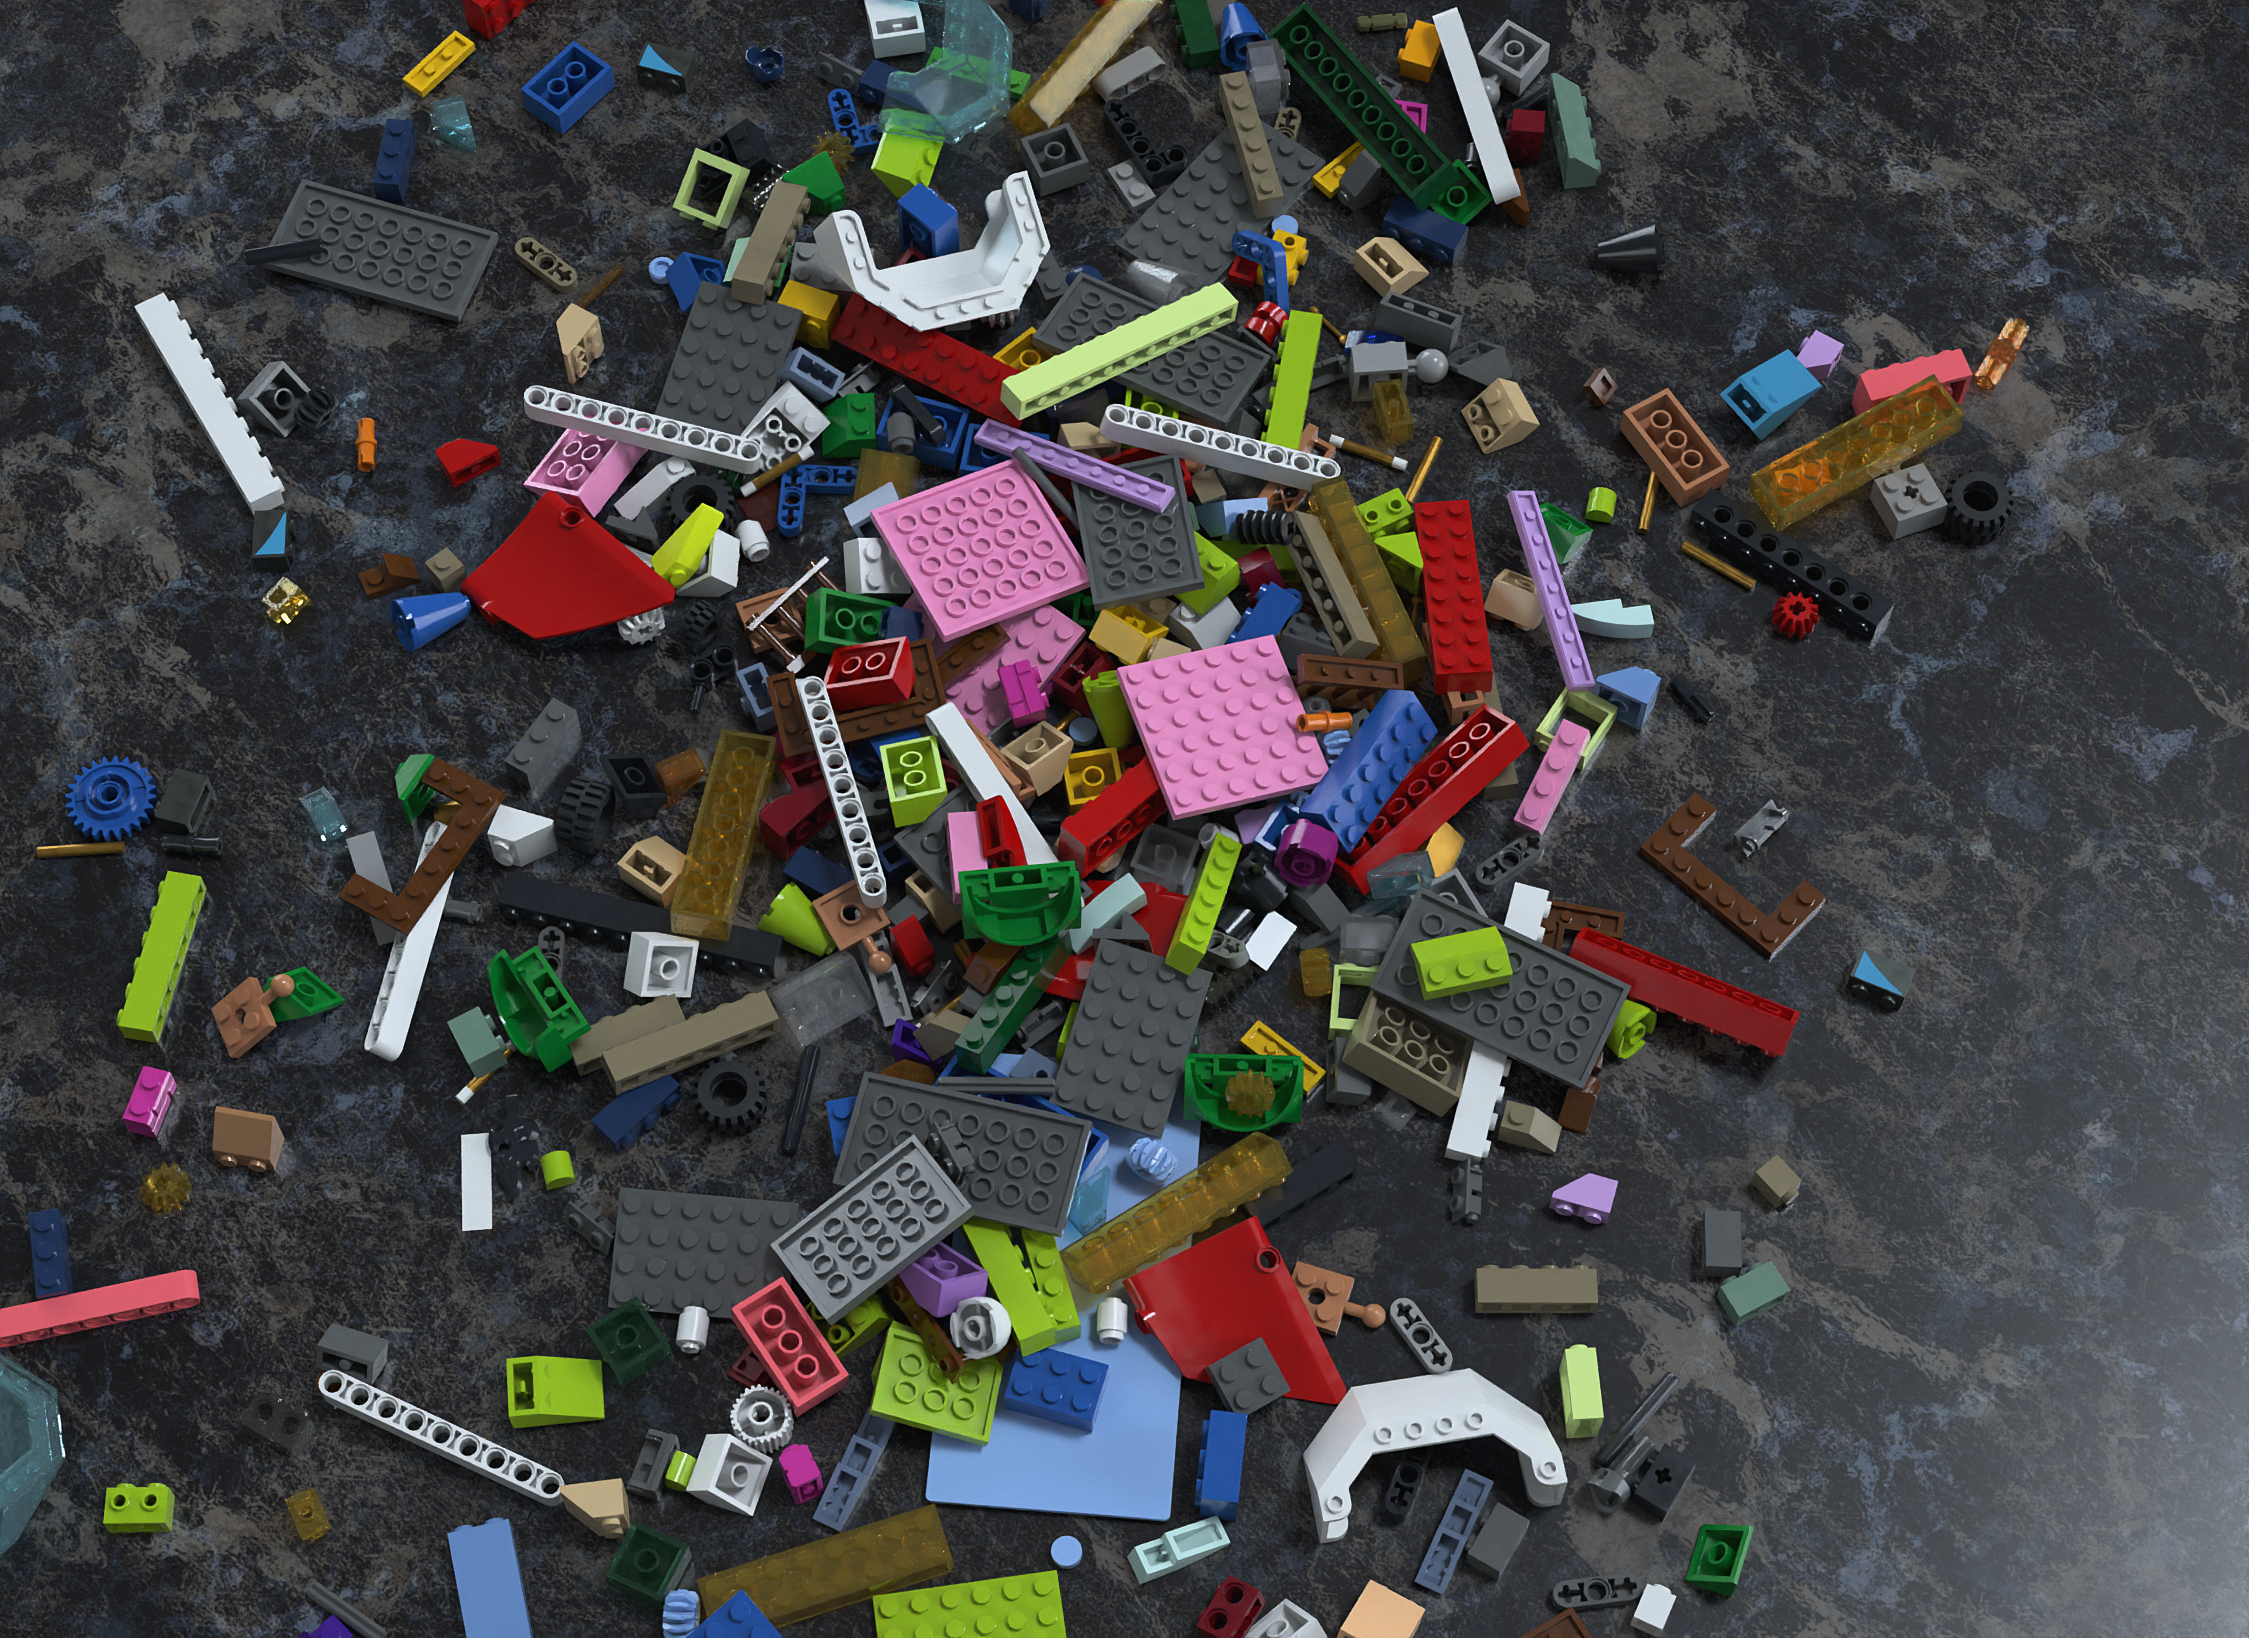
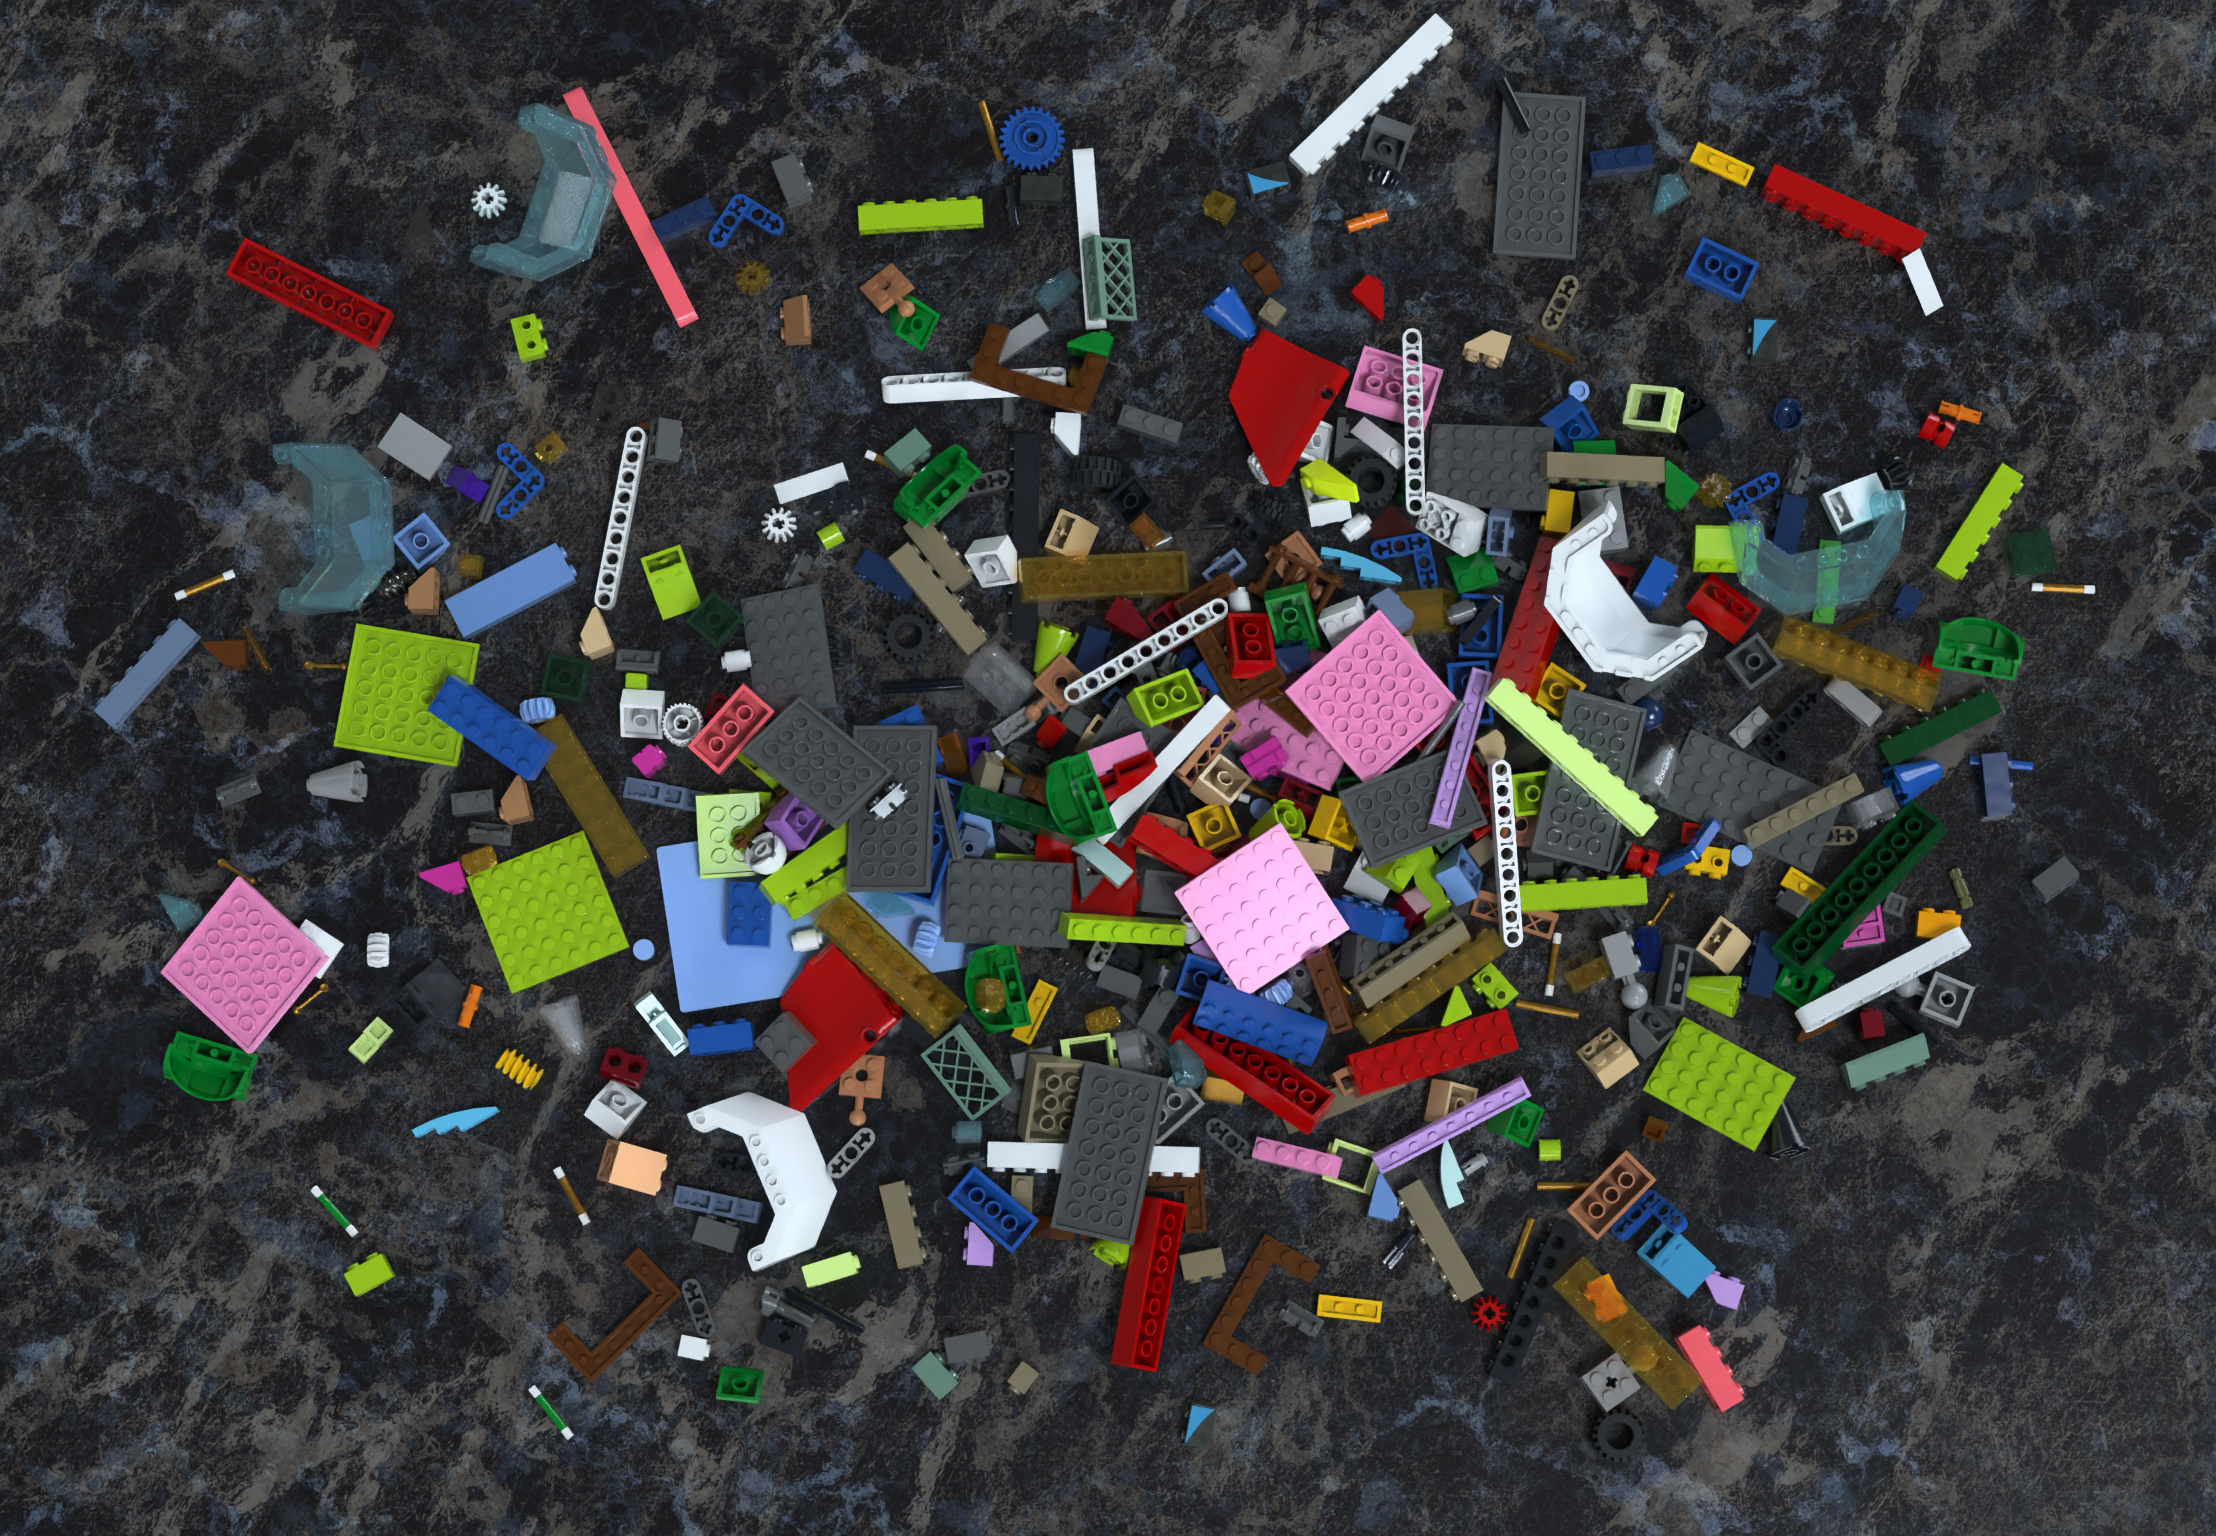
camera: 80 degrees right, 20 degrees up
(50, 1101) = (790, 177): none -> dark grey brick
(72, 1179) = (745, 212): none -> blue beam
(149, 1101) = (810, 245): dark pink brick -> none
(270, 761) = (1087, 213): none -> white beam
(325, 752) = (1097, 278): none -> sand green fence
(337, 1564) = (525, 478): none -> blue beam
(532, 1231) = (774, 531): none -> white gear
(777, 470) = (1418, 528): pearl gold bar -> none
(807, 541) = (1368, 569): none -> medium azure slope
(978, 177) = (1723, 608): none -> red slope
(1034, 62) = (1860, 622): none -> pearl gold piece
(1265, 527) = (1443, 902): black piece -> none
(1306, 853) = (1179, 993): magenta brick -> none
(1324, 721) = (1285, 982): orange pin -> none
(1341, 1127) = (979, 1059): none -> sand green fence
(1428, 1170) = (967, 1132): none -> clear light blue slope
(1450, 278) = (1716, 992): none -> lime cone
(1461, 963) = (1115, 1120): lime slope -> none
(1541, 1163) = (993, 1209): none -> blue slope
(1562, 304) = (1719, 1084): none -> lime plate
(1599, 587) = (1474, 1163): none -> light grey pin
(1667, 926) = (1203, 1264): none -> dark tan brick
(1698, 646) = (1439, 1241): none -> dark tan brick
(1701, 406) = (1652, 1208): none -> blue beam
(1758, 771) = (1349, 1308): none -> yellow plate
(2001, 354) = (1766, 1434): clear orange piece -> none

